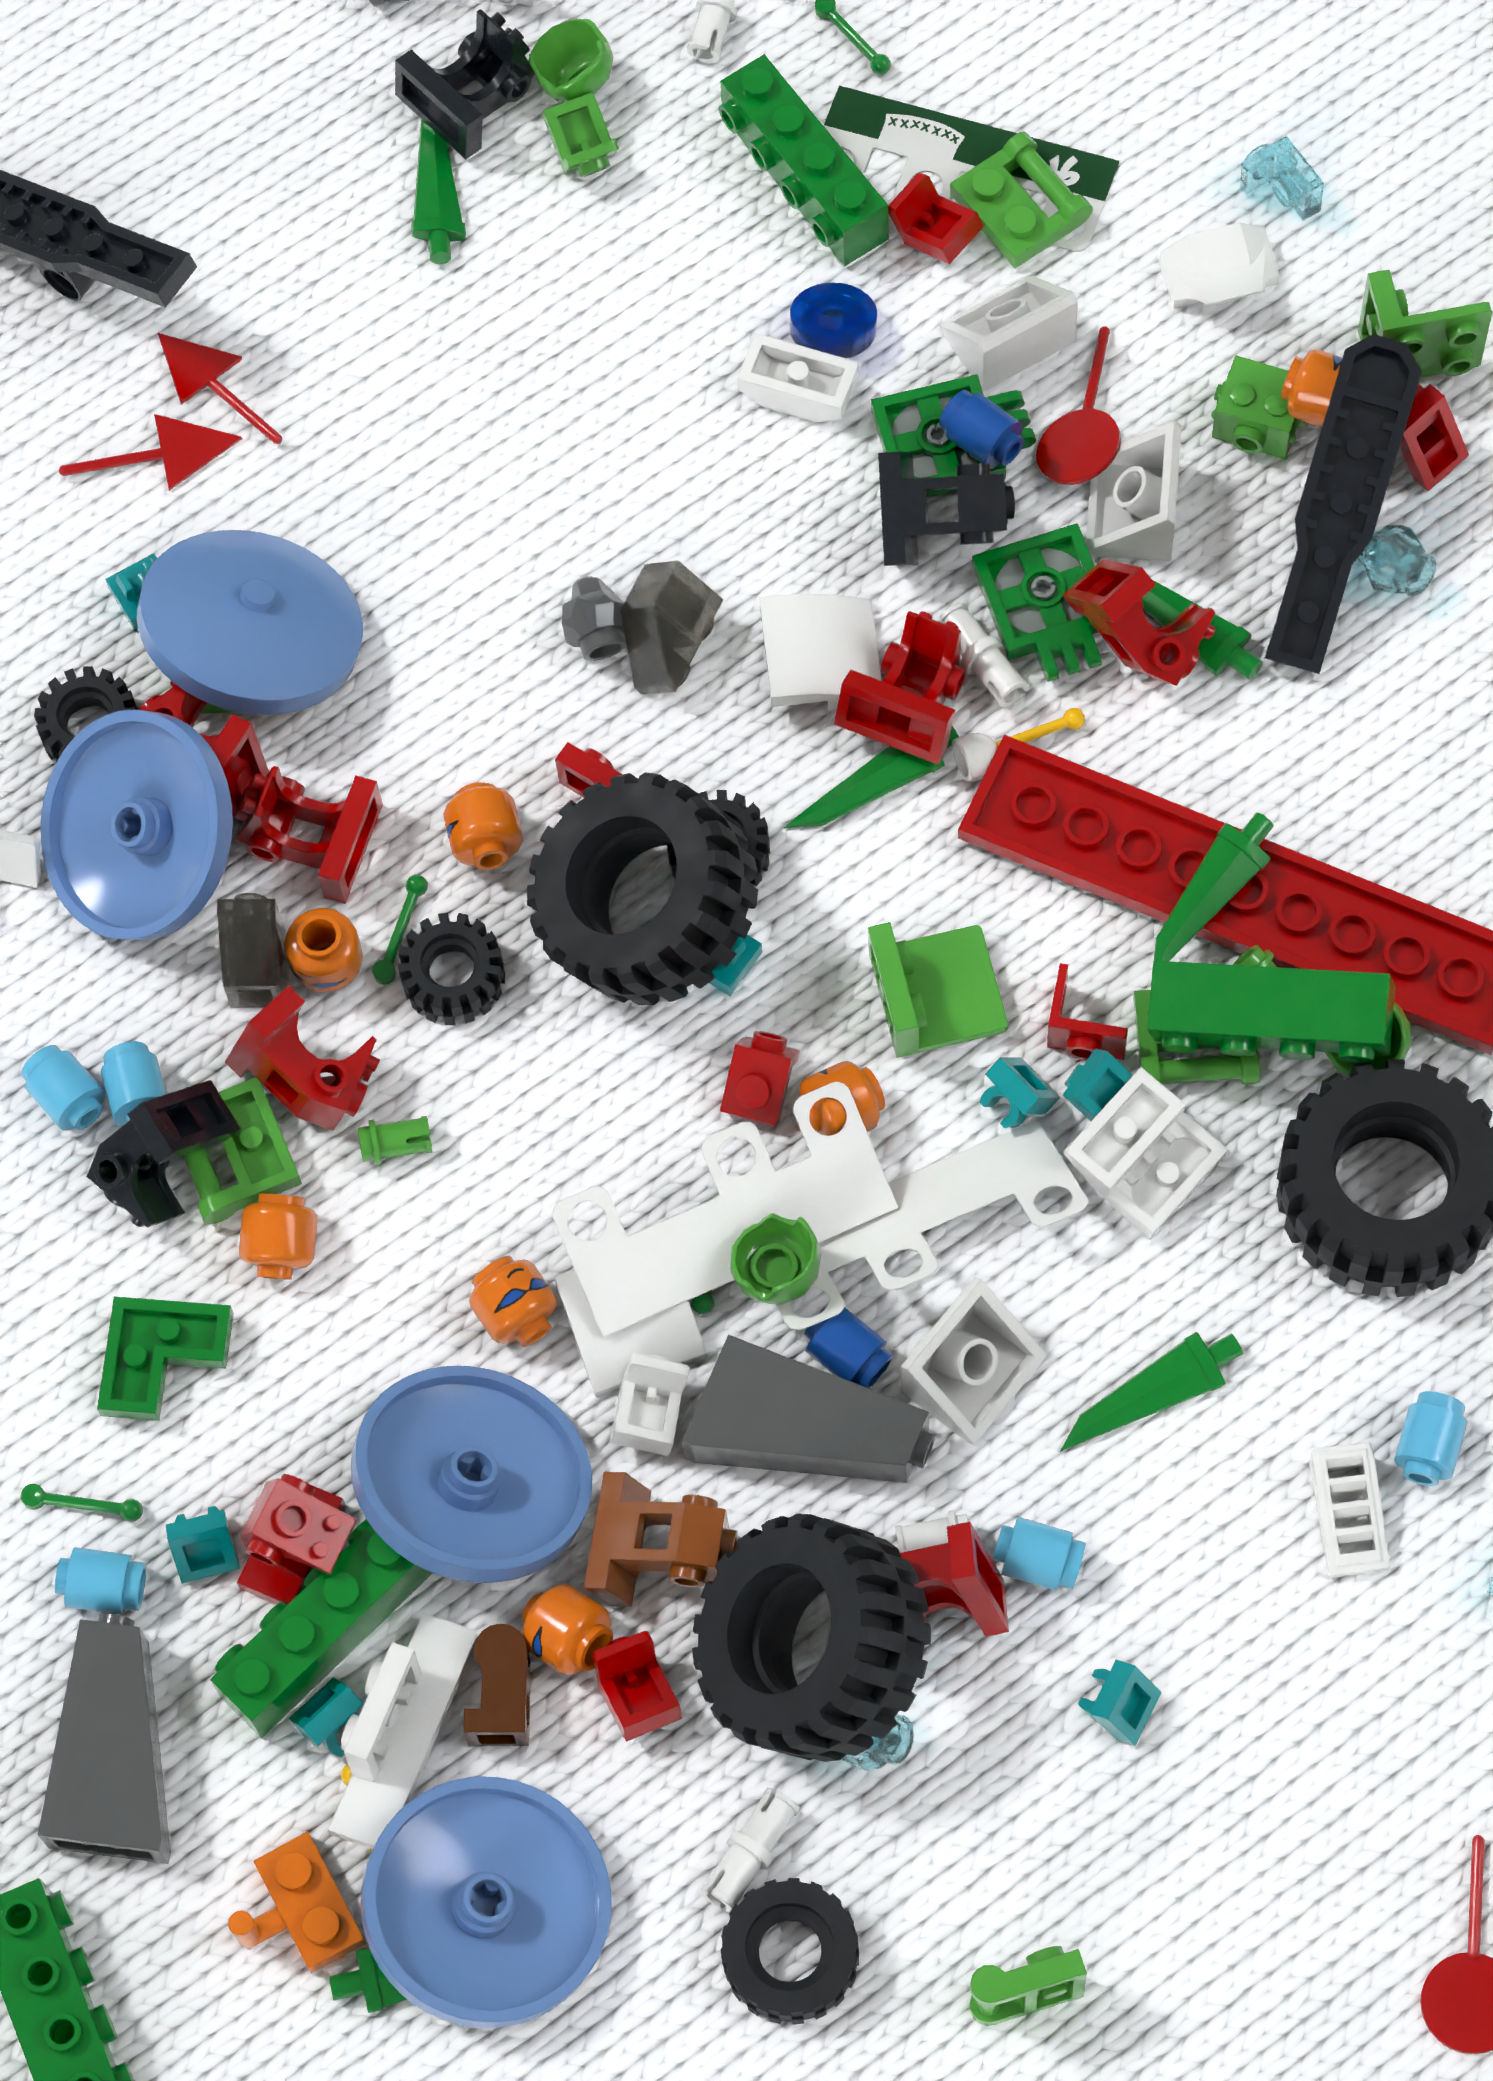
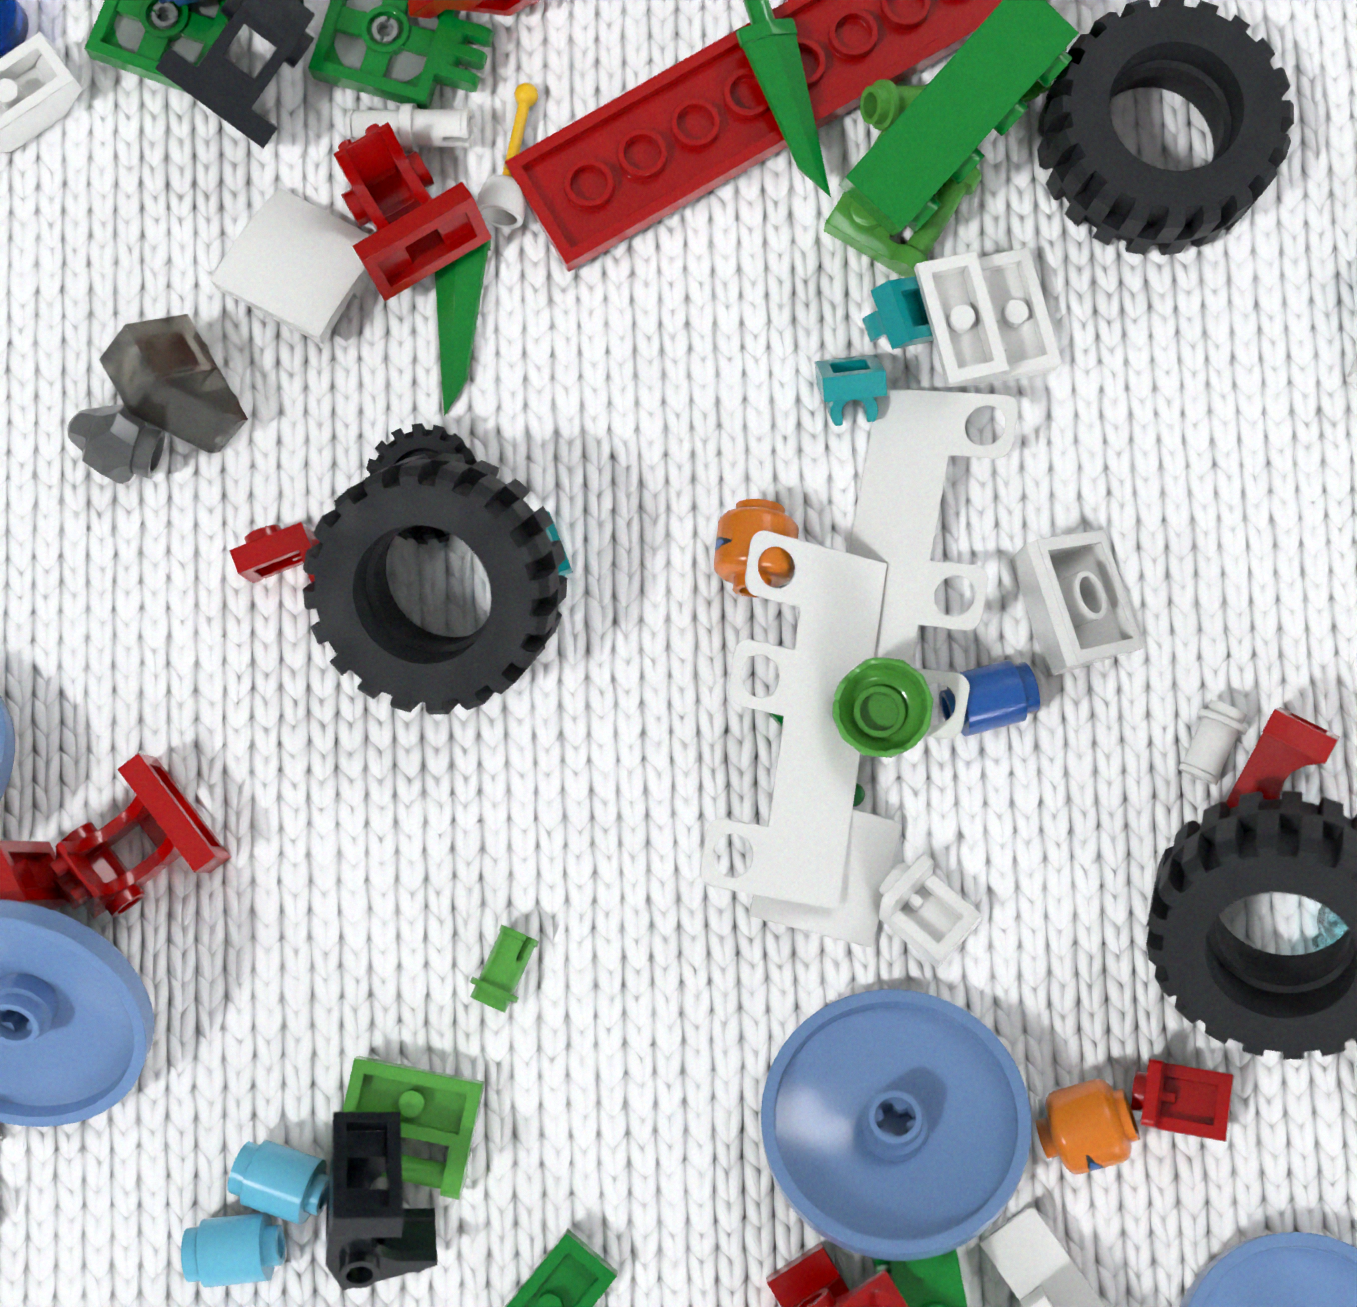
camera: 60 degrees left, 15 degrees up
(252, 950) = (227, 983): clear smoke slope -> none
(278, 1235) = (526, 1142): orange head -> none
(292, 1073) = (348, 1032): red tile -> none
(323, 950) = (250, 919): orange head -> none
(384, 970) = (324, 866): green hinge -> none
(444, 938) = (333, 799): black tyre -> none
(483, 824) = (252, 683): orange head -> none
(504, 1691) = (1086, 1207): reddish brown leg -> none
(513, 1301) = (744, 967): orange head -> none
(695, 1541) = (1103, 956): dark orange tile -> none
(759, 1077) = (677, 599): red bracket -> none
(800, 1419) = (1026, 789): dark grey slope -> none
(936, 988) = (702, 388): bright green bracket -> none
(1039, 1554) = (1290, 662): medium azure brick -> none
(1078, 1036) = (839, 300): red bracket -> none
(1172, 1379) = (1199, 440): green bar -> none

